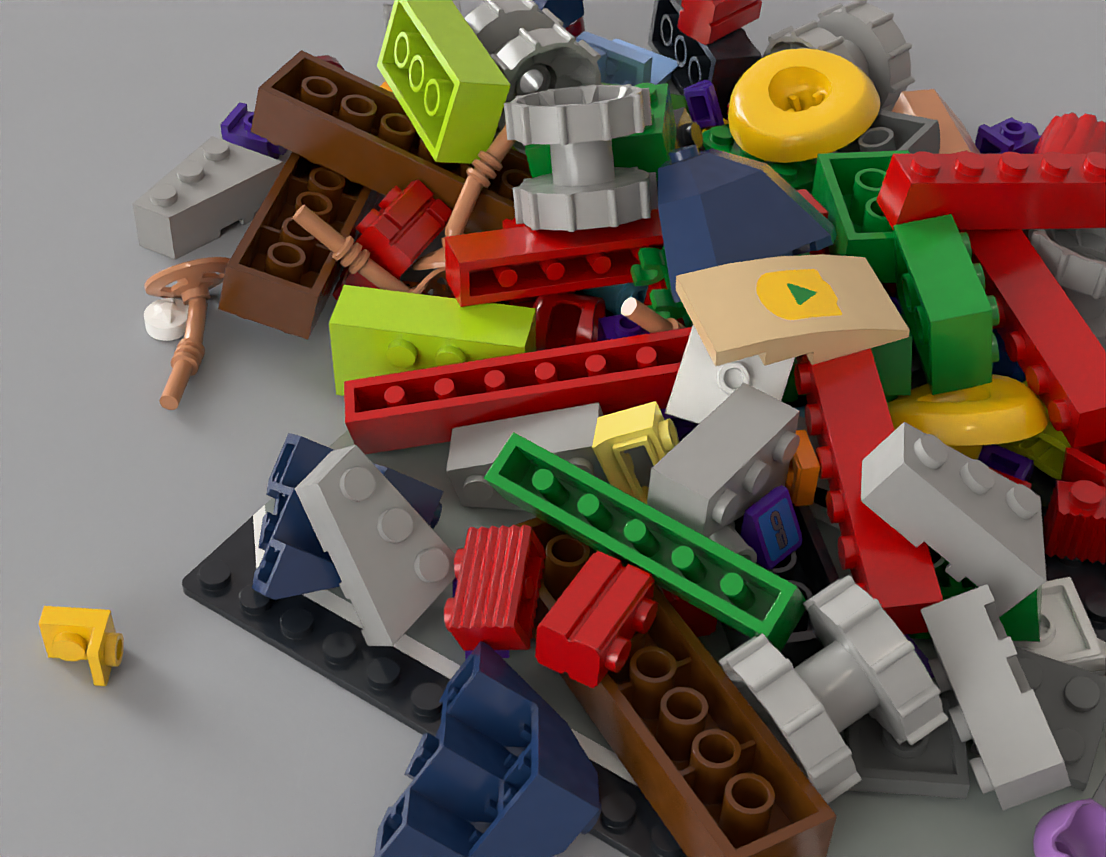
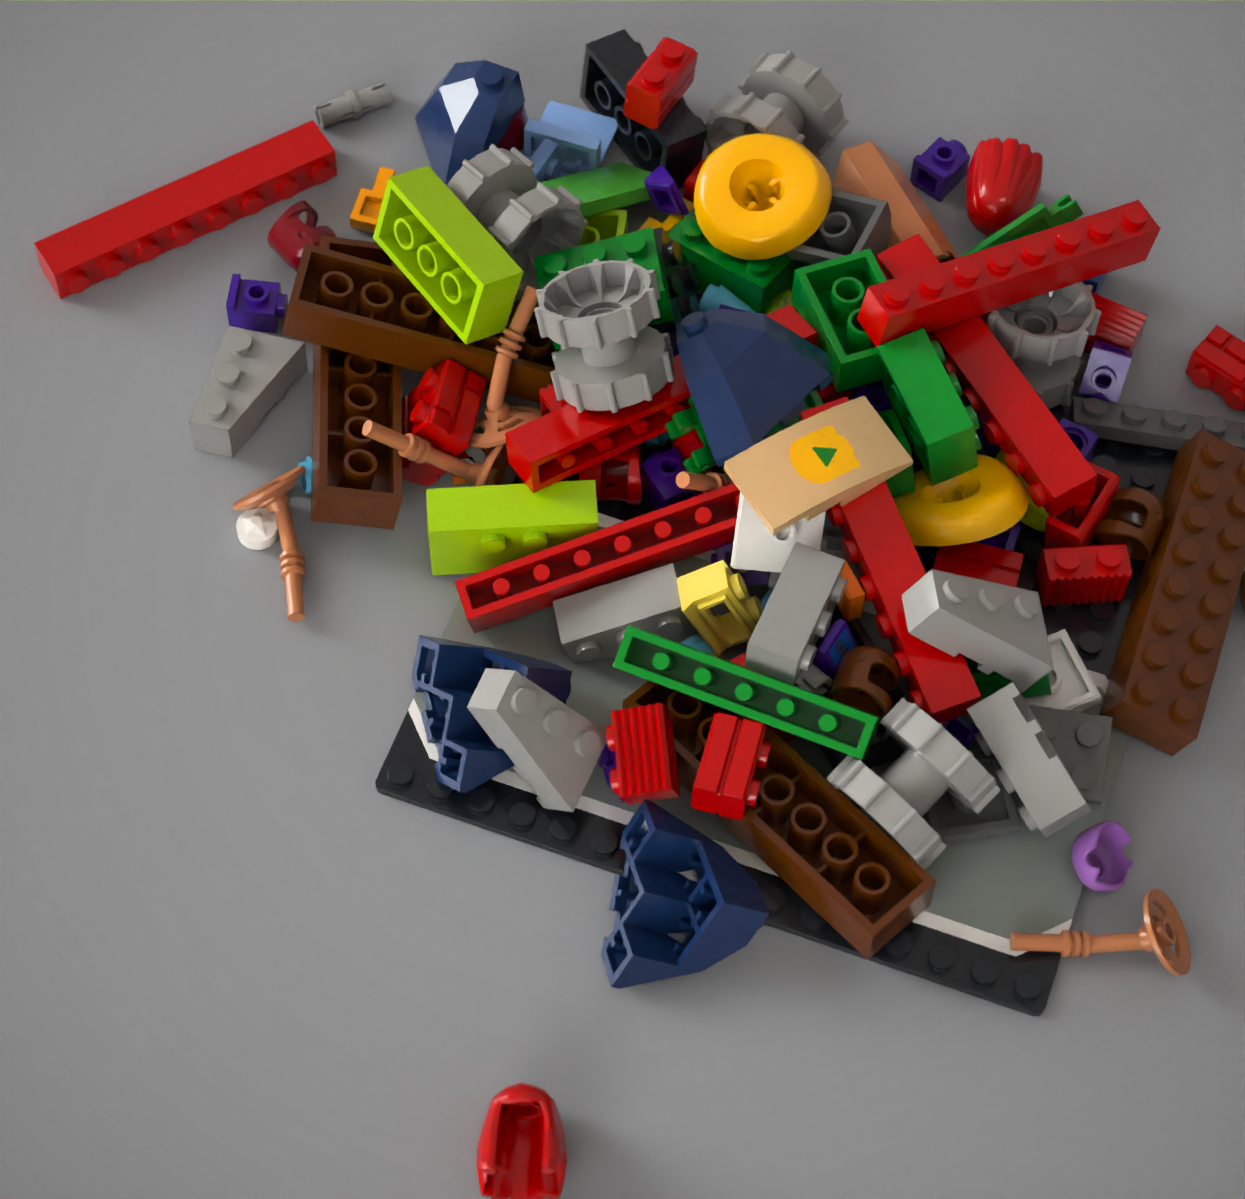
camera: 15 degrees left, 15 degrees up
(83, 635) = (324, 851): yellow bracket -> none
(216, 56) = (186, 209): none -> red brick
(802, 552) = (869, 671): none -> reddish brown helmet

